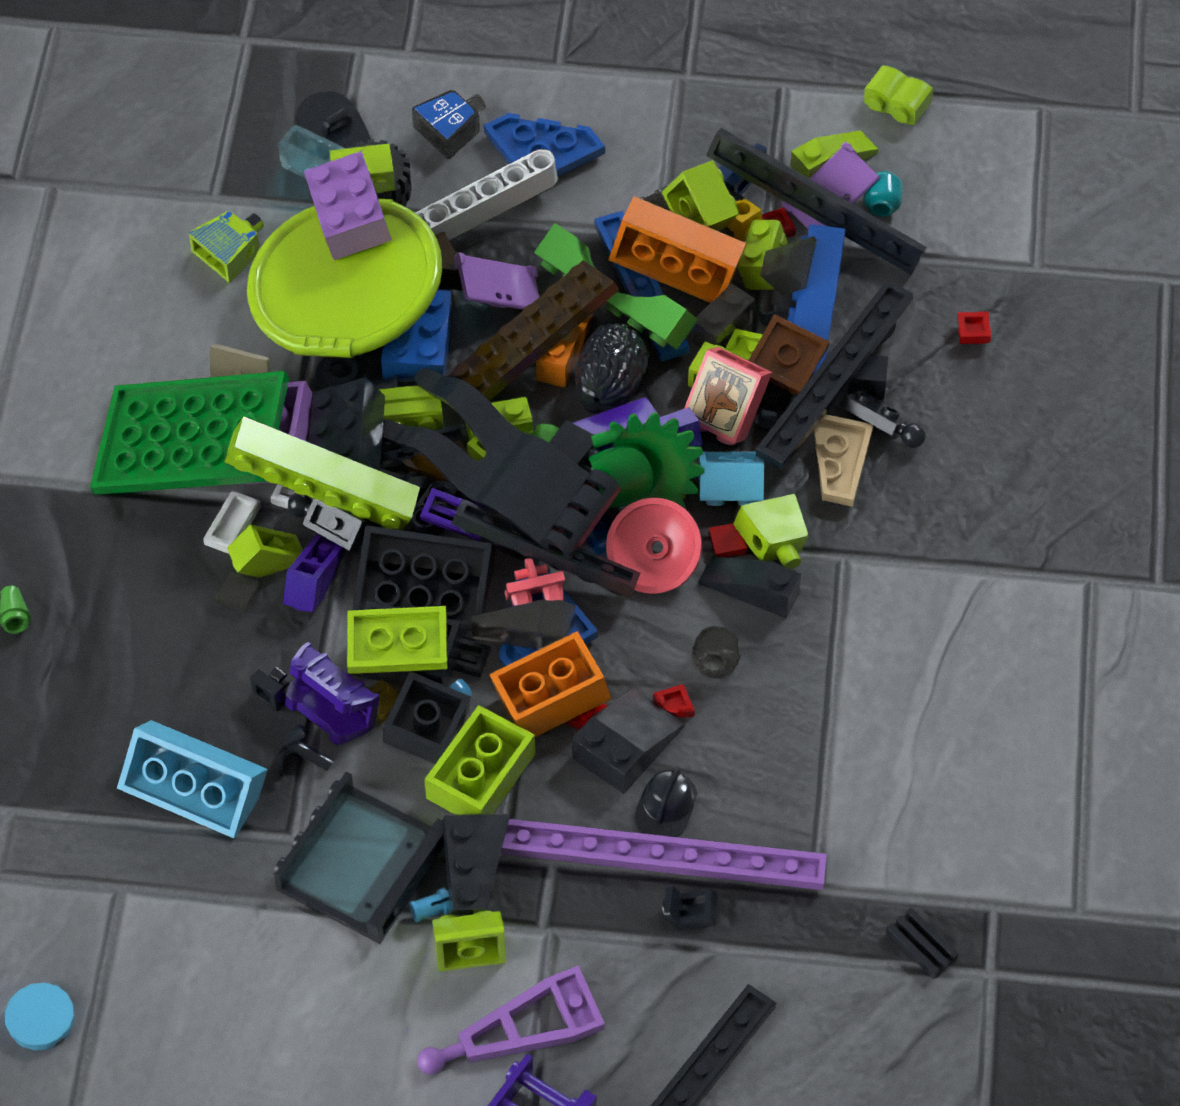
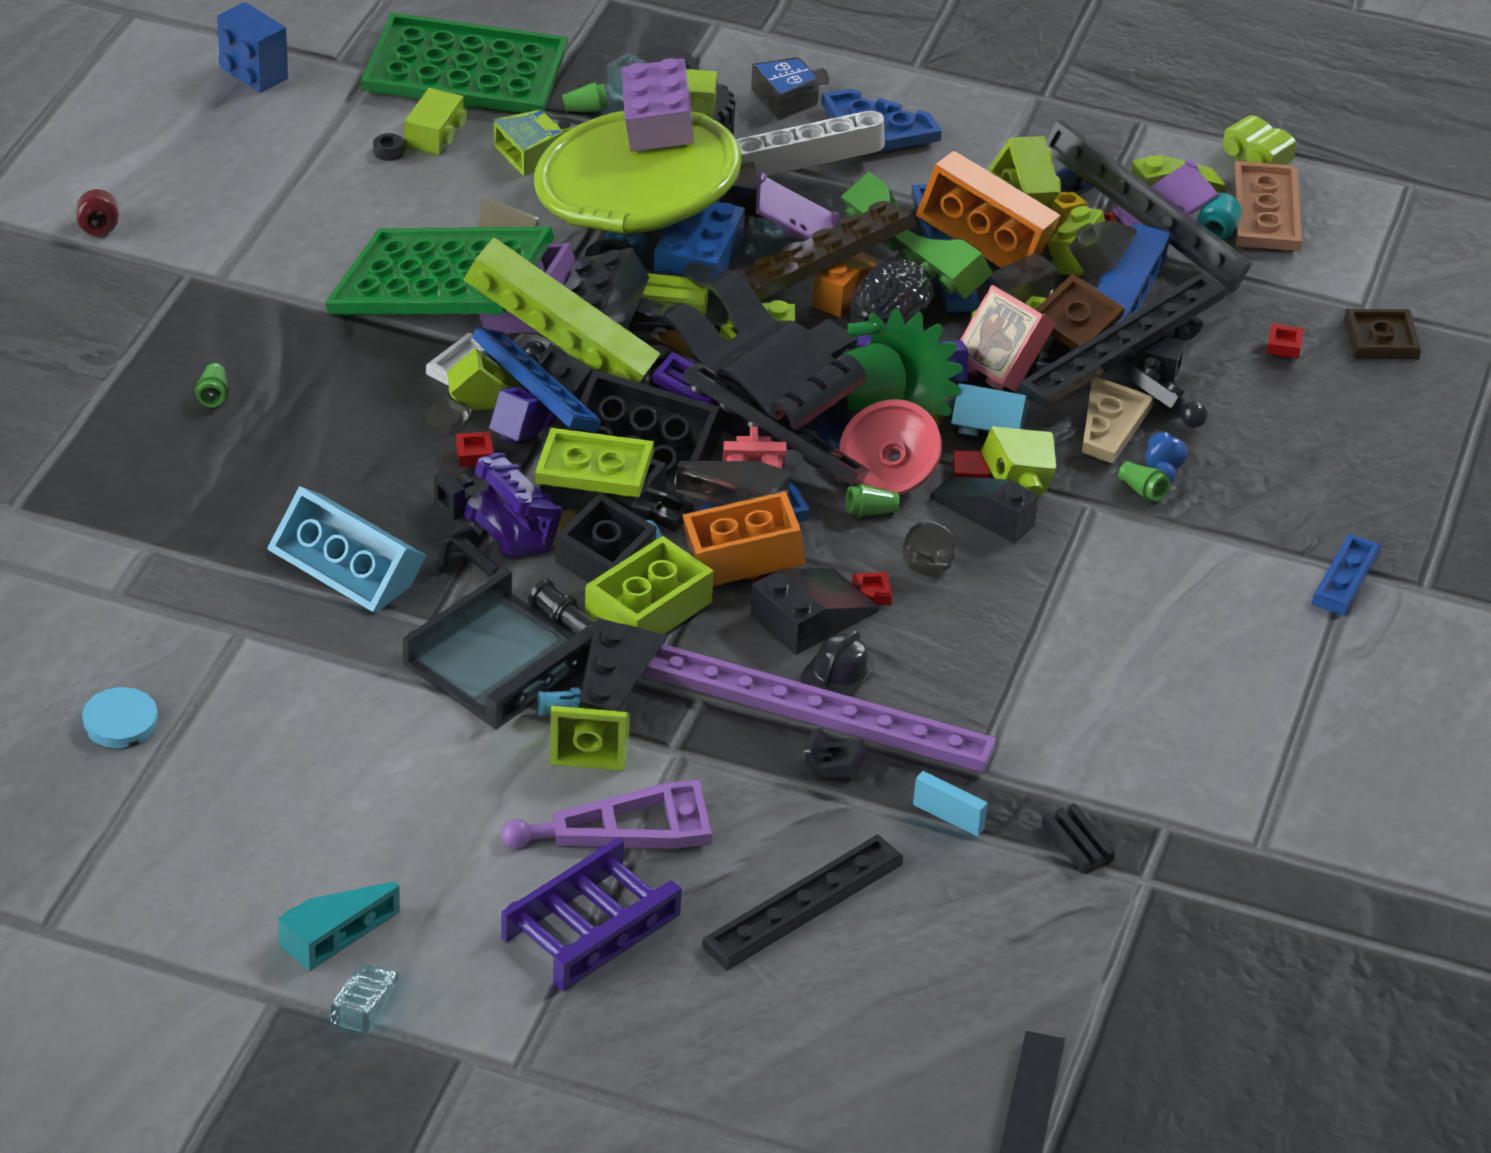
camera: 10 degrees right, 15 degrees down
(94, 278) = (388, 147): none -> black tile
(131, 241) = (434, 121): none -> lime brick
(139, 160) = (480, 62): none -> green plate
(265, 179) = (586, 99): none -> bright green cone
(275, 629) = (472, 447): none -> red plate
(313, 542) = (536, 379): none -> blue tile
(407, 799) = (560, 607): none -> black pin
(648, 605) = (870, 501): none -> bright green cone
(803, 936) = (950, 803): none -> medium azure tile
(889, 524) = (1146, 481): none -> bright green cone
(896, 491) = (1166, 454): none -> blue animal
(923, 163) = (1268, 205): none -> nougat plate
(1057, 296) = (1382, 334): none -> dark brown tile
(1087, 586) = (1346, 574): none -> blue tile

